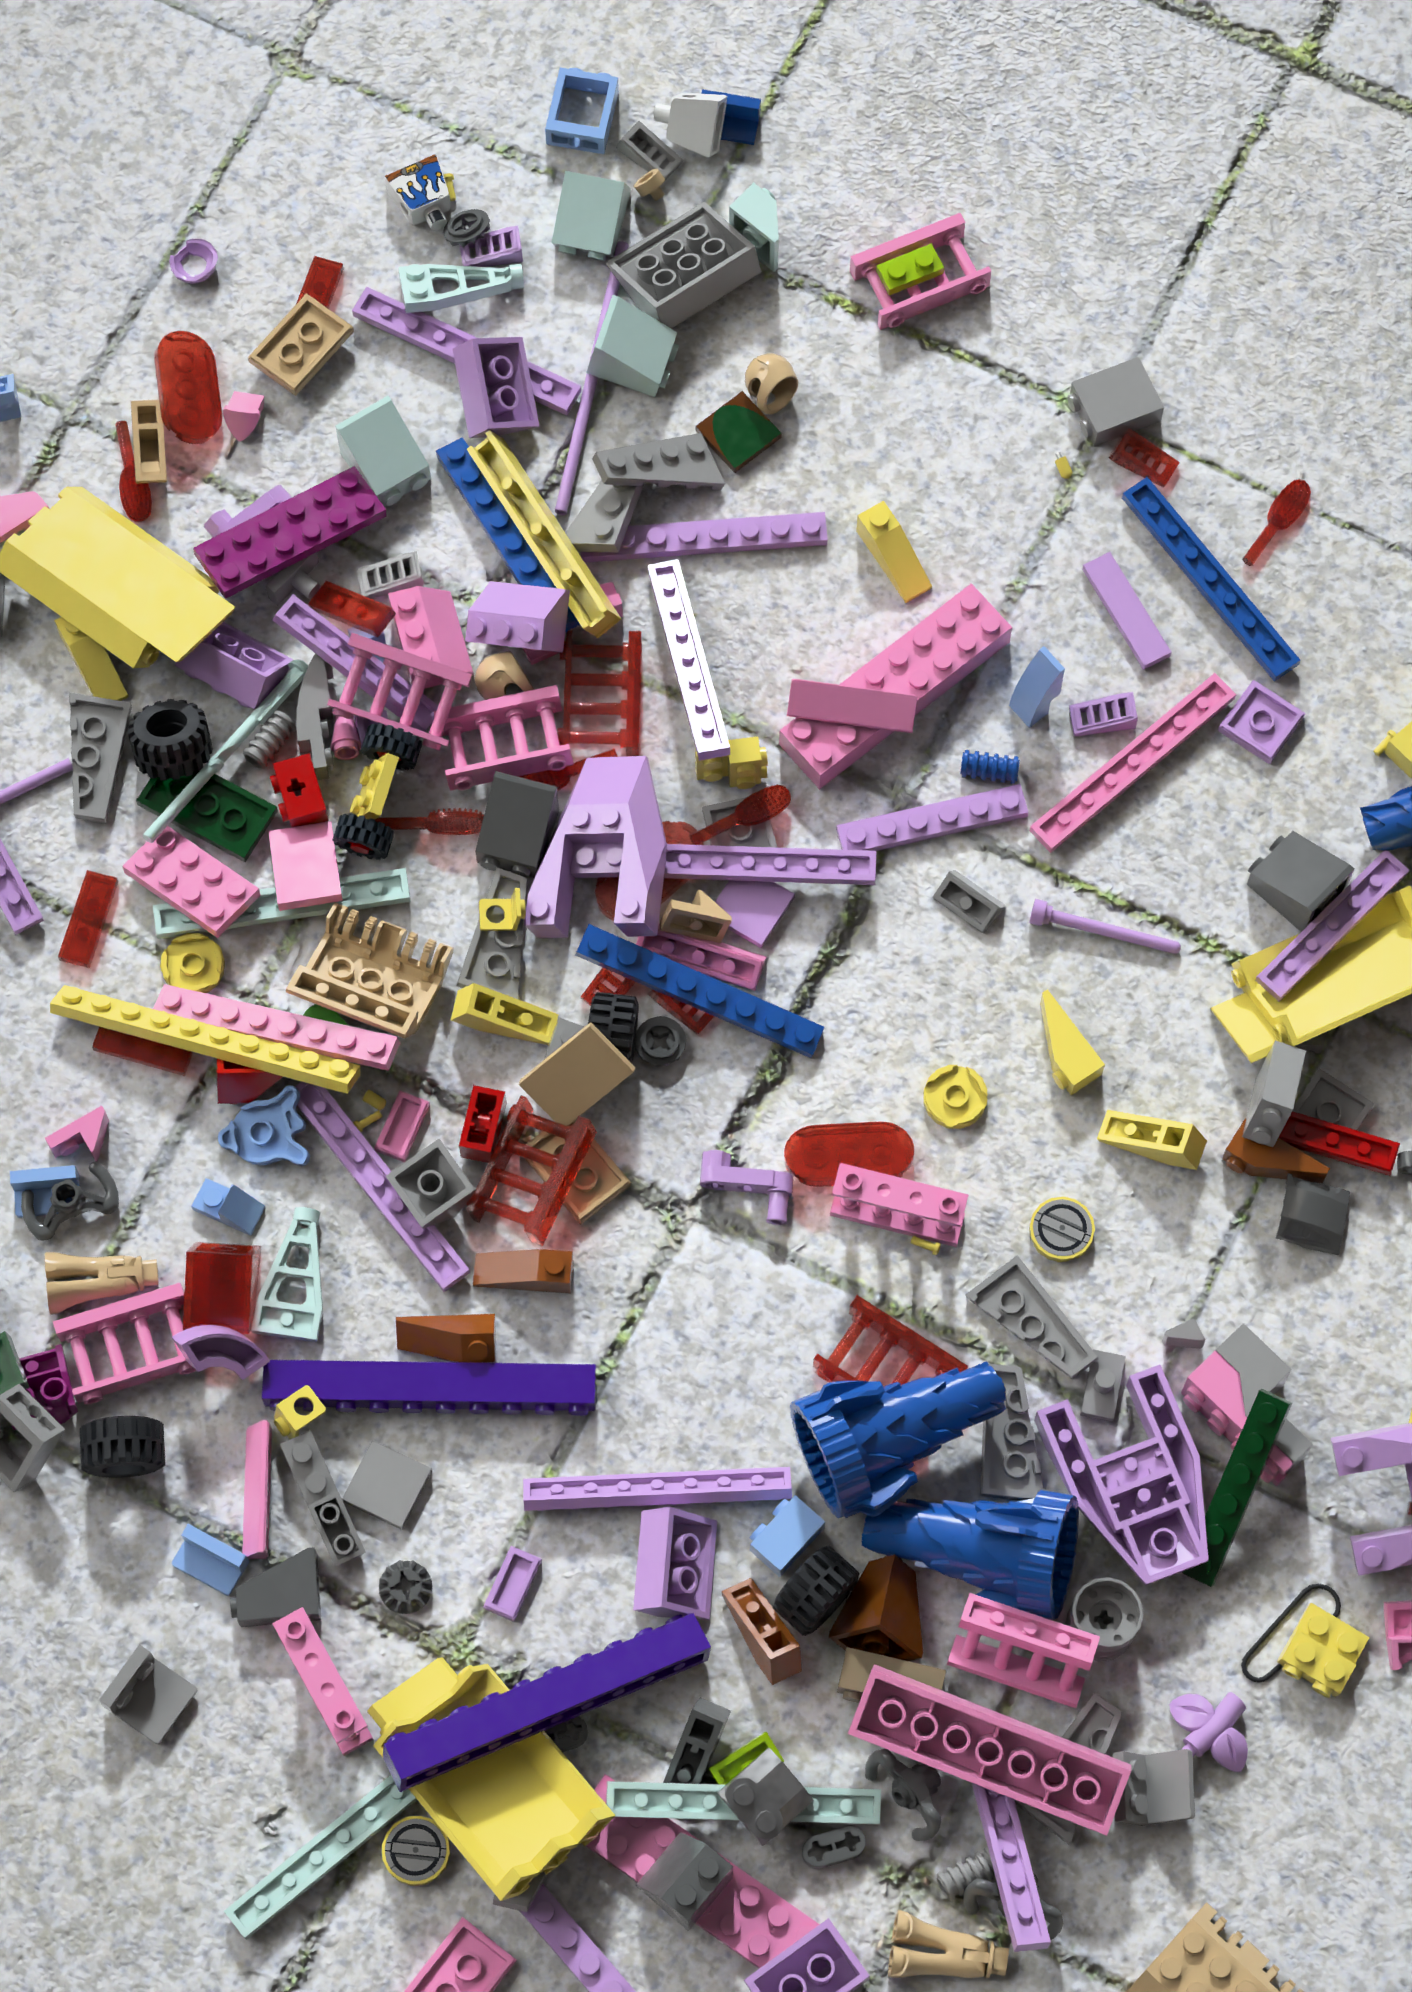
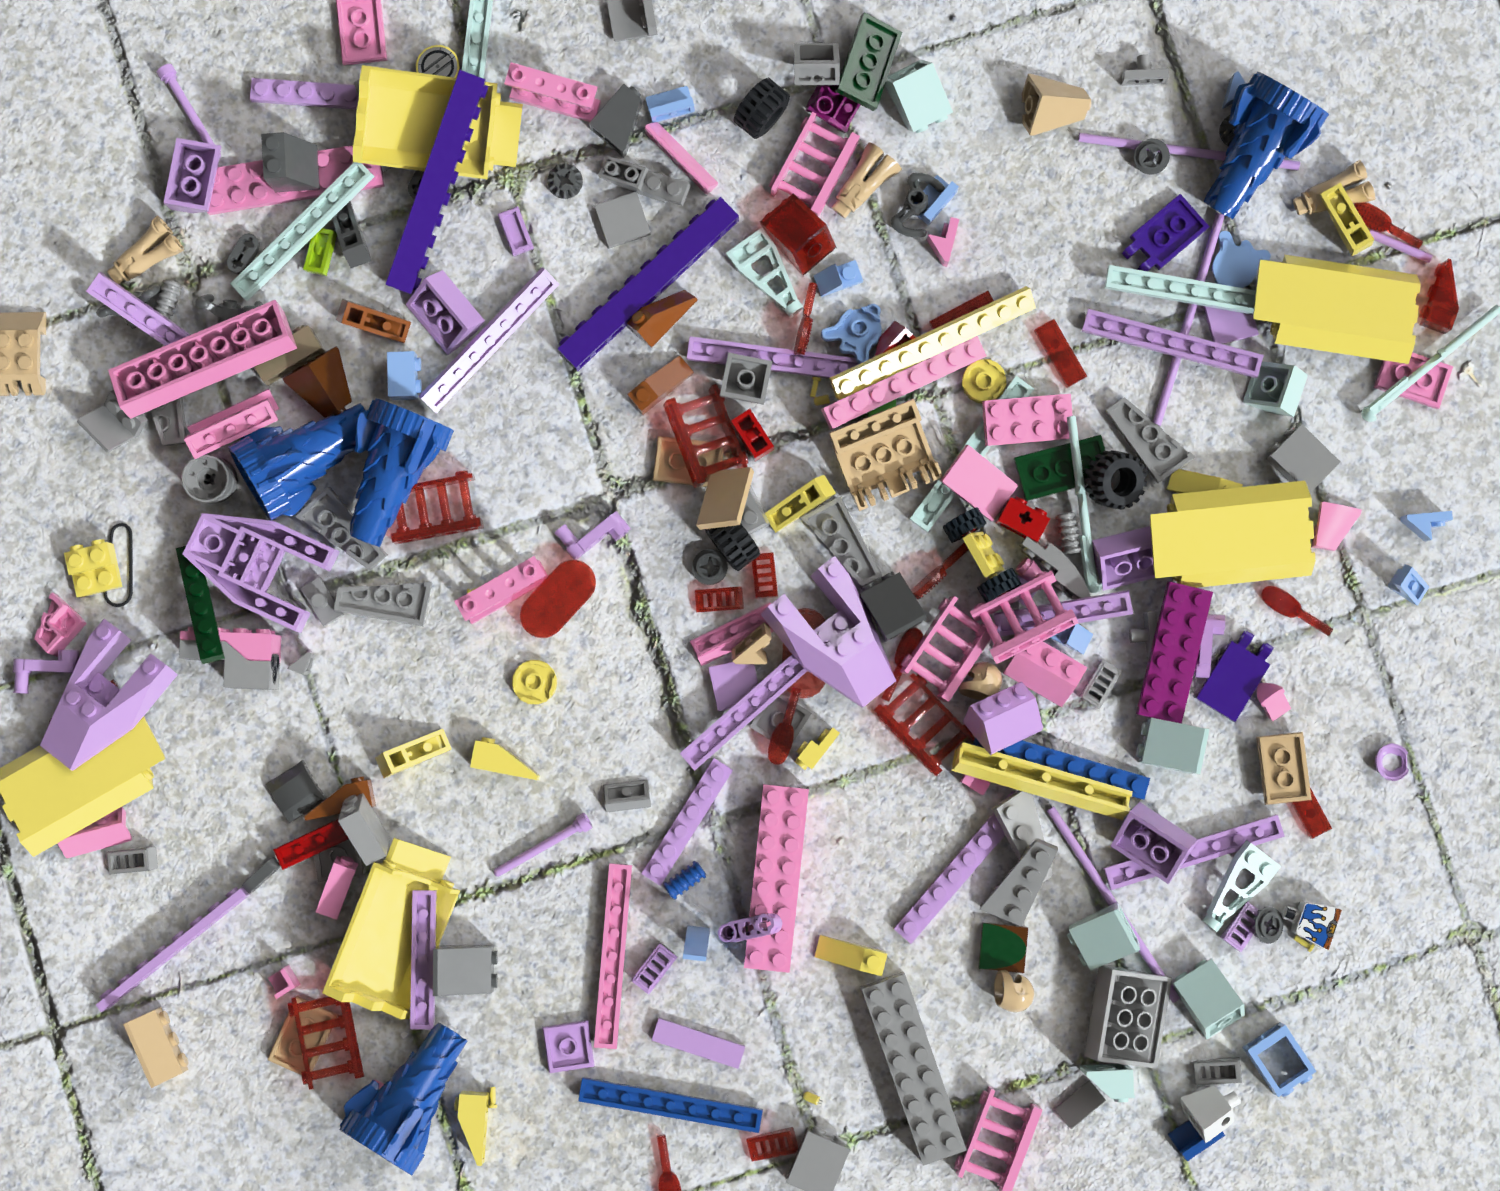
camera: 135 degrees right, 15 degrees up
(148, 442) = (1302, 632): tan slope -> none
(188, 387) = (1316, 685): clear red tile -> none
(220, 1347) = (762, 197): lavender brick -> none
(254, 466) = (1235, 677): none -> dark purple tile
(290, 1422) = (696, 198): light yellow bracket -> none
(315, 1185) = (805, 325): none -> clear red piece
(352, 608) = (1099, 643): clear red tile -> none
(402, 1126) = (794, 400): bright pink tile -> none
(513, 909) = (847, 558): light yellow bracket -> none
(650, 184) = (1197, 1050): tan tile -> none
(688, 660) = (892, 780): plate -> none
(699, 991) = (713, 609): blue plate -> none
(765, 1796) = (291, 237): flat silver slope -> none
(809, 235) = (1080, 1104): none -> light grey slope
(816, 1590) = (360, 358): black tyre -> none
(852, 705) = (780, 835): bright pink slope -> none
(910, 269) = (1003, 1134): lime plate -> none
(936, 402) = (913, 1068): none -> light grey brick
(986, 658) = (759, 924): none -> lavender beam
(1062, 1229) = (416, 663): tile -> none
(1212, 1728) = (114, 479): lavender plant -> none
(1358, 1074) = (337, 887): none -> bright pink brick

